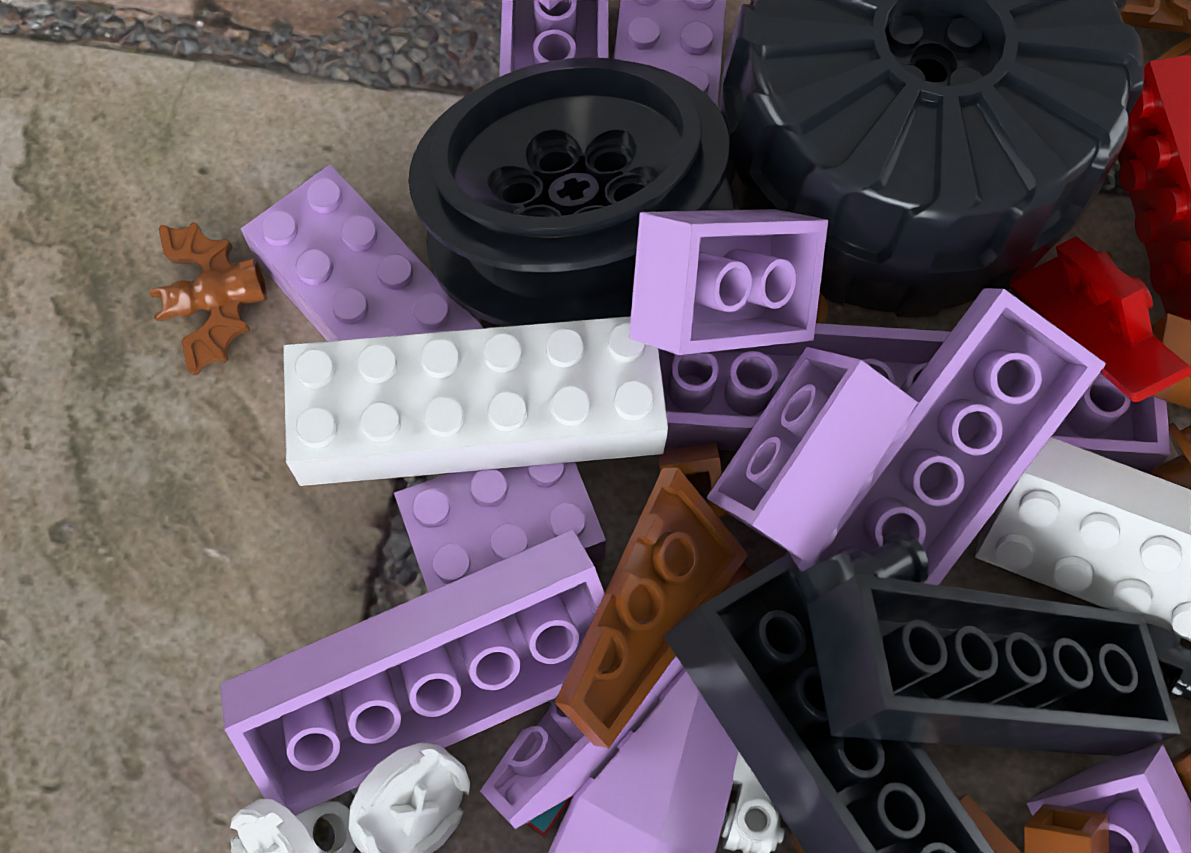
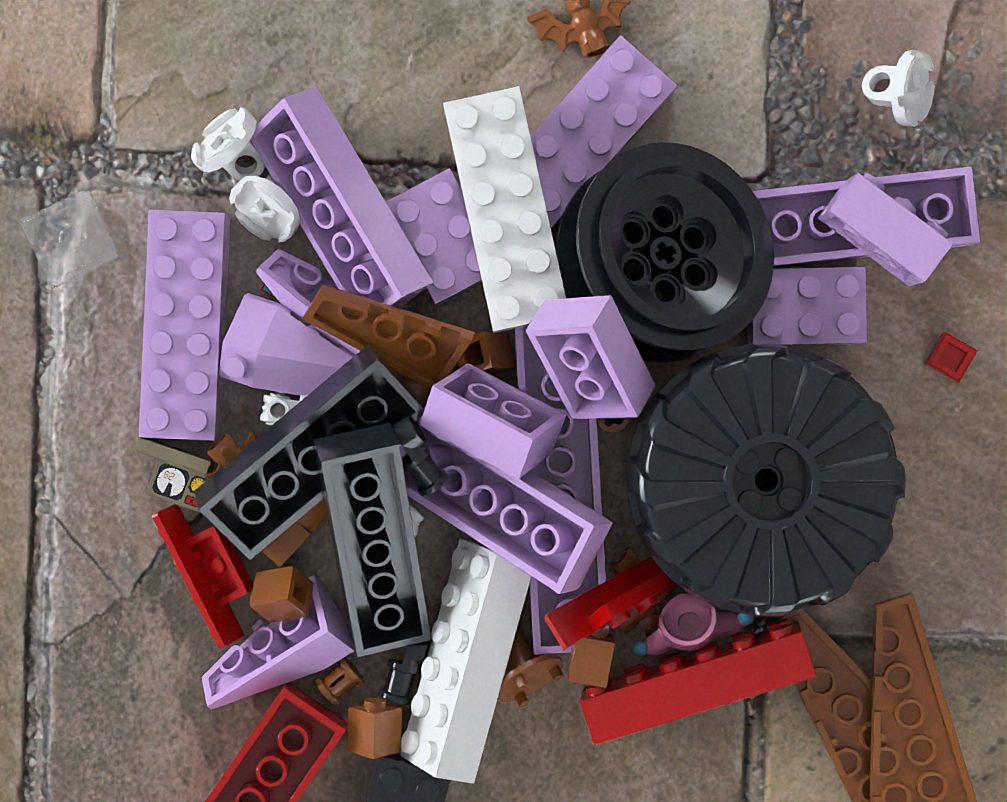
camera: 85 degrees right, 20 degrees up
(1127, 229) = (689, 626): none -> bright pink piece

